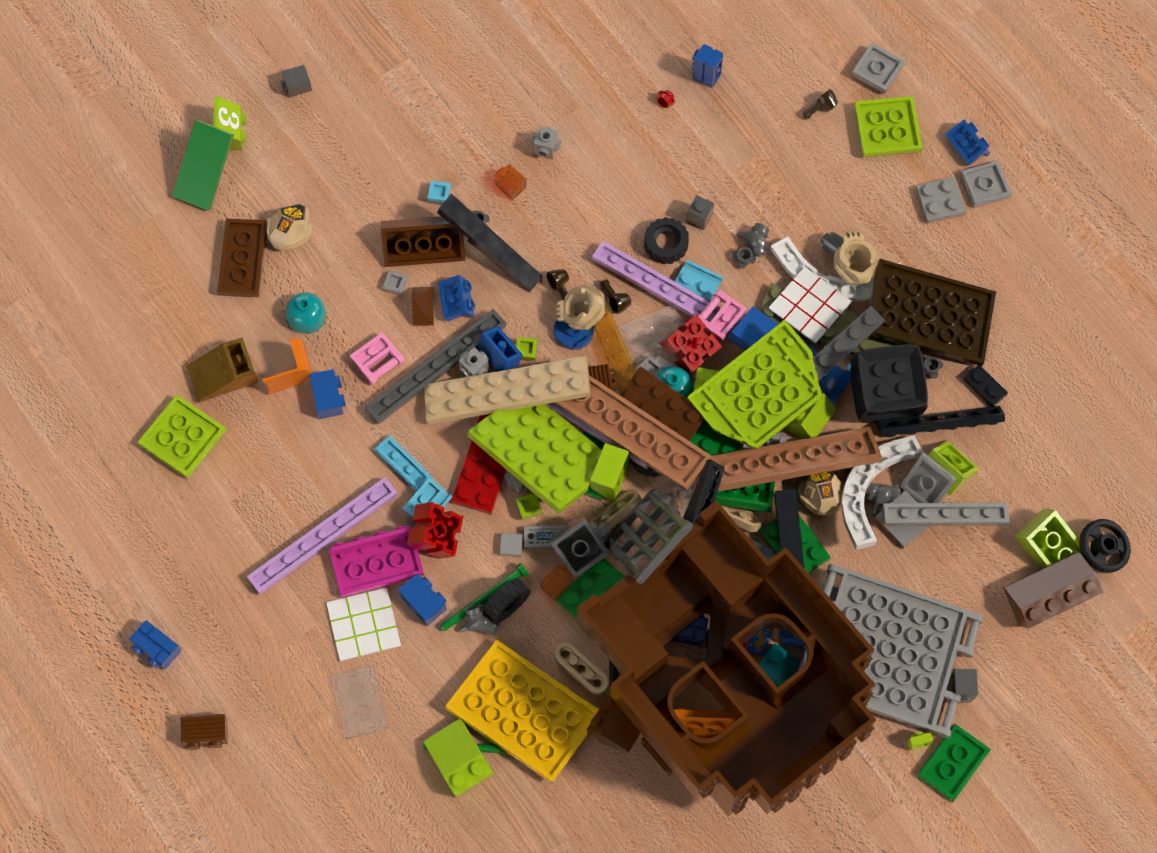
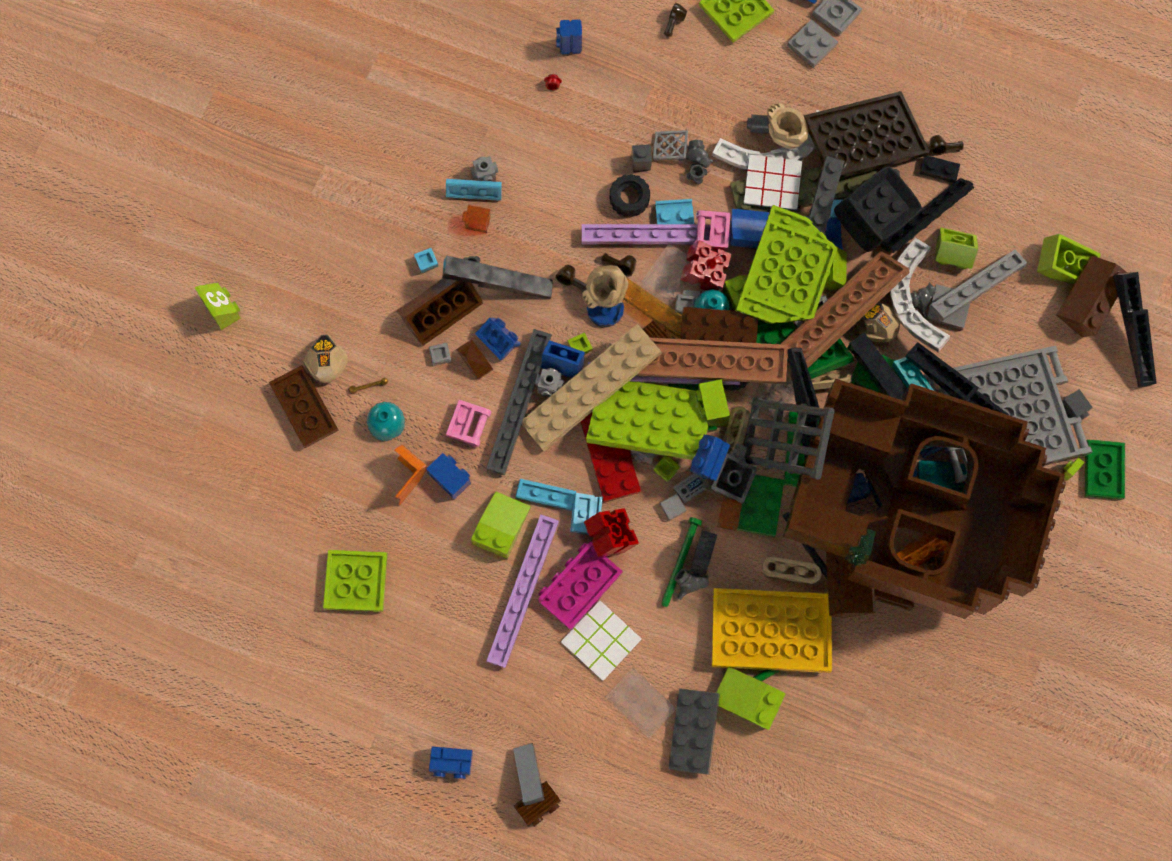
camera: 35 degrees left, 5 degrees up
(202, 165) = (221, 349): green tile -> none
(213, 698) = (528, 774): none -> dark grey tile
(222, 370) = (352, 508): pearl gold slope -> none
(296, 81) = (247, 236): dark grey brick -> none
(296, 269) = (353, 389): none -> pearl gold hinge
(343, 465) = (500, 525): none -> lime slope
(389, 756) = (694, 731): none -> dark grey plate
(422, 599) = (636, 592): blue brick -> none
(525, 154) = (473, 189): none -> medium azure tile
(566, 513) = (709, 457): none -> blue brick
(633, 663) = (861, 553): none -> clear green bracket
(716, 220) = (670, 133): none -> light grey window
(818, 559) = (910, 373): none -> teal plate
(852, 588) = (948, 378): none -> black slope
(927, 480) = (950, 267): light grey tile -> none
(998, 364) = (939, 146): none -> dark brown bar
(1075, 646) = (1136, 326): none -> black slope
(1113, 544) = (1103, 241): black wheel -> none

